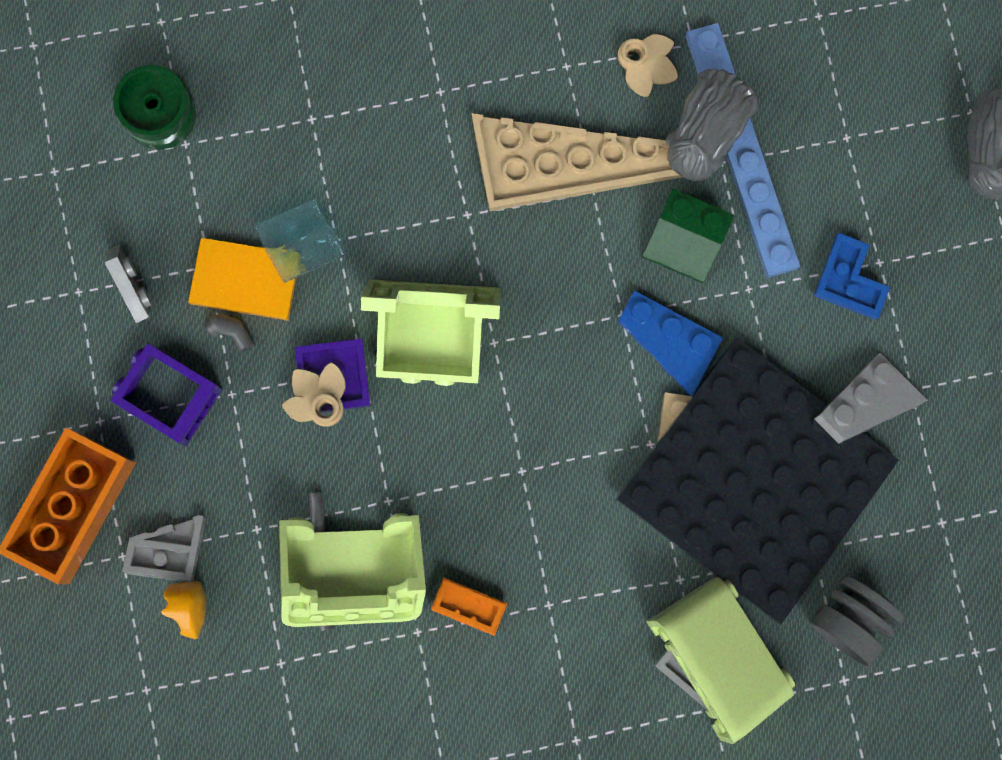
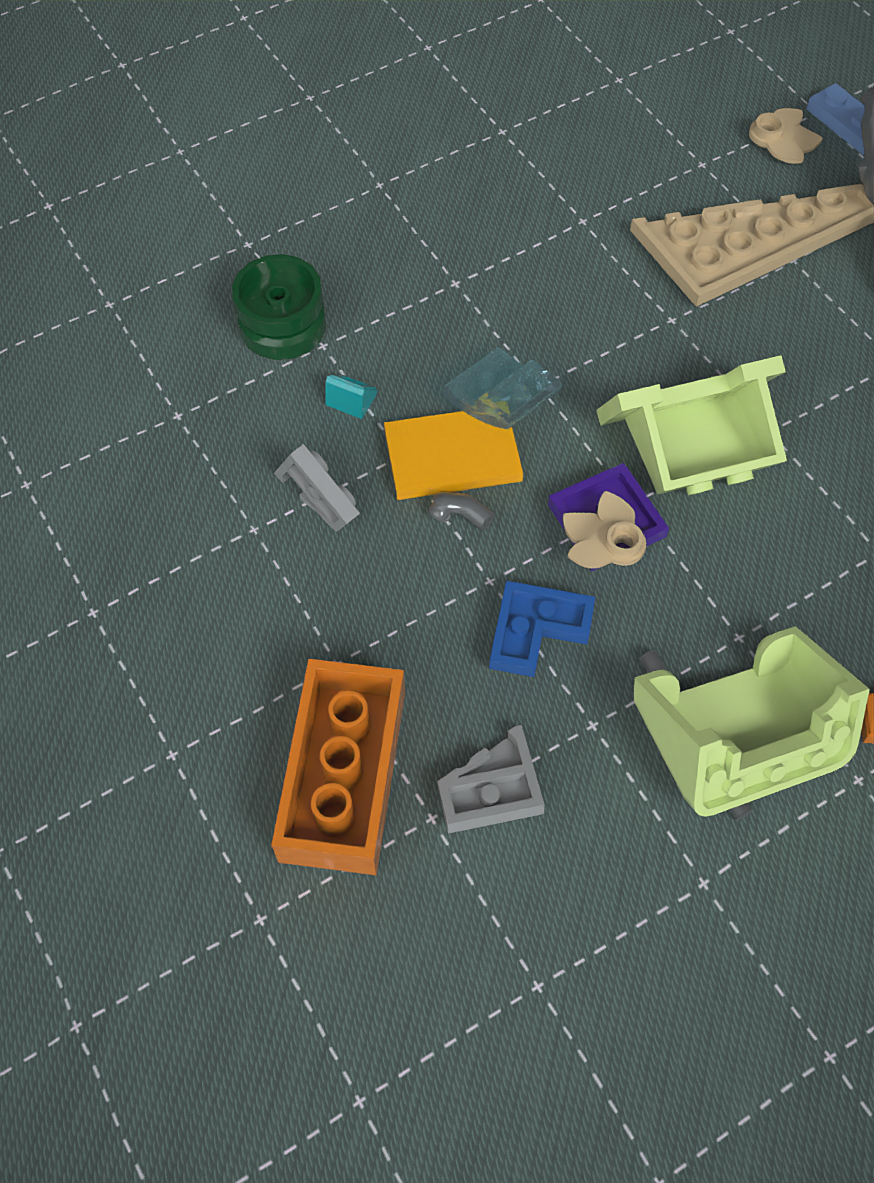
camera: 15 degrees left, 20 degrees down
(186, 606) = (555, 841): light orange hair -> none
(188, 199) = (349, 395): none -> teal slope
(195, 410) = (409, 632): dark purple window -> none
(242, 436) = (535, 613): none -> blue plate

